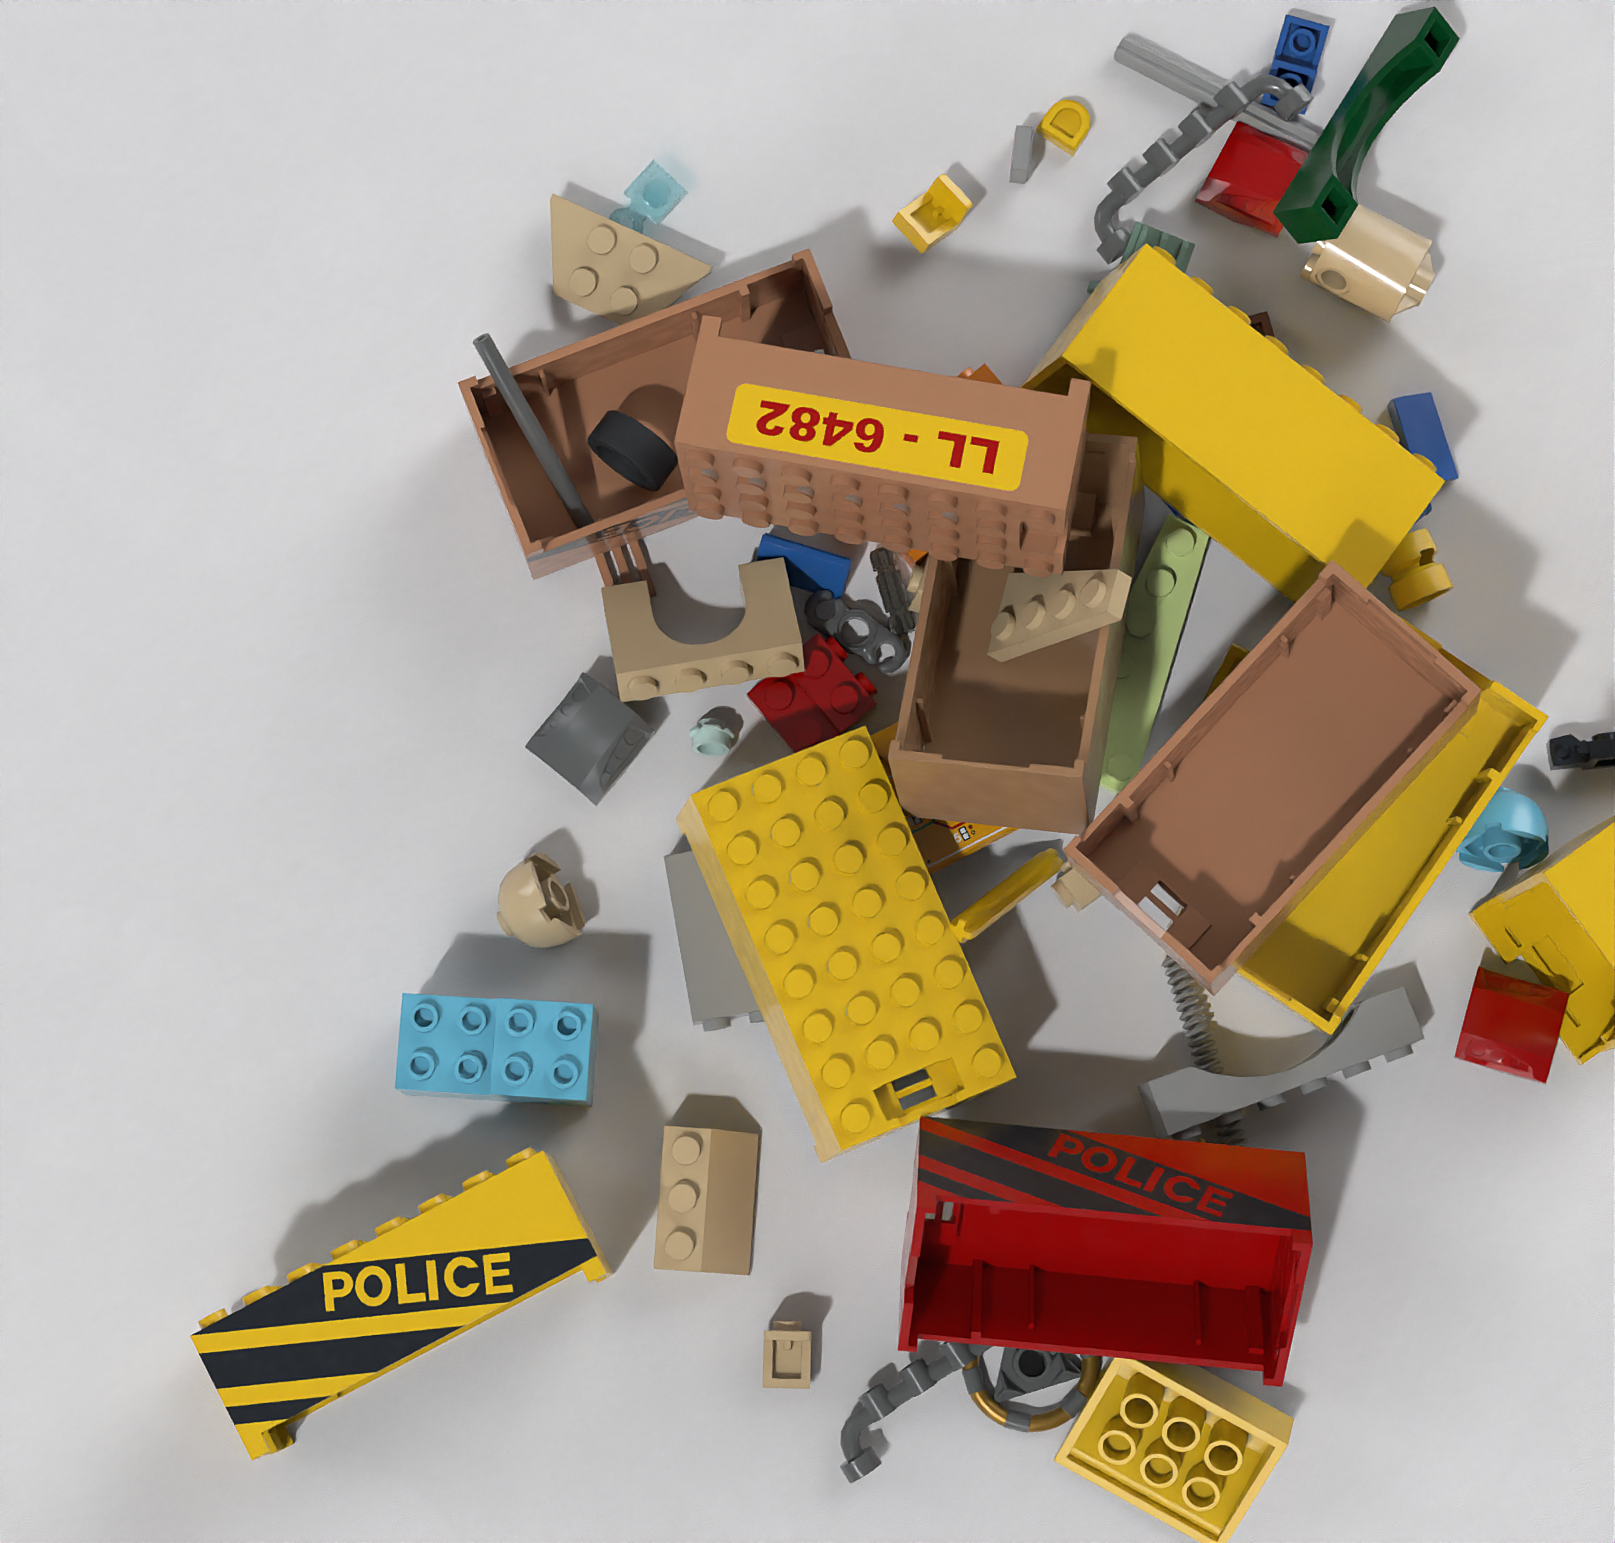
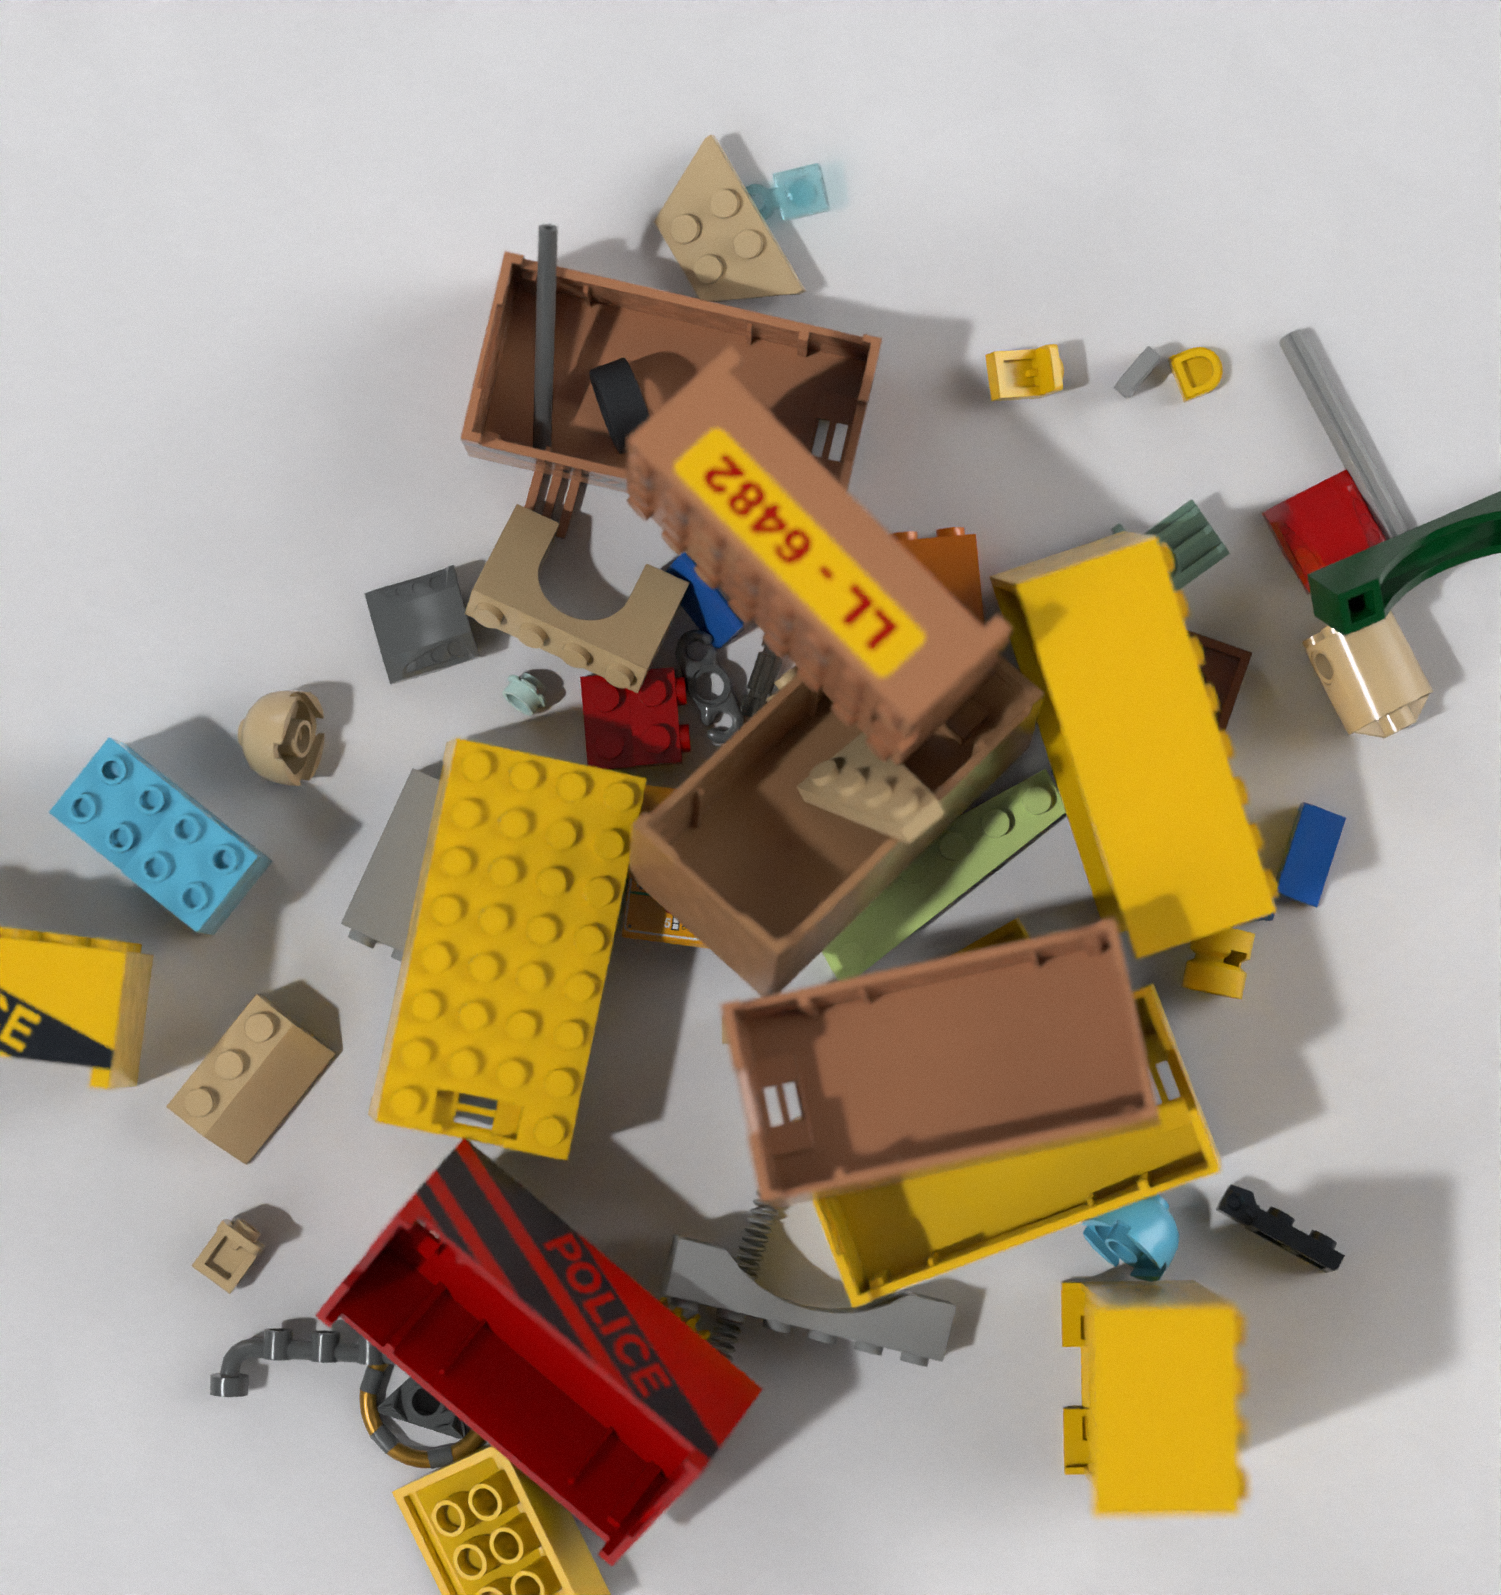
camera: 40 degrees right, 5 degrees up
(1006, 895) = (669, 1000): yellow axle -> none
(1196, 131) = (1302, 454): dark grey bar -> none
(1297, 54) = (1431, 453): blue slope -> none
(1511, 1025) = (1026, 1400): red slope -> none

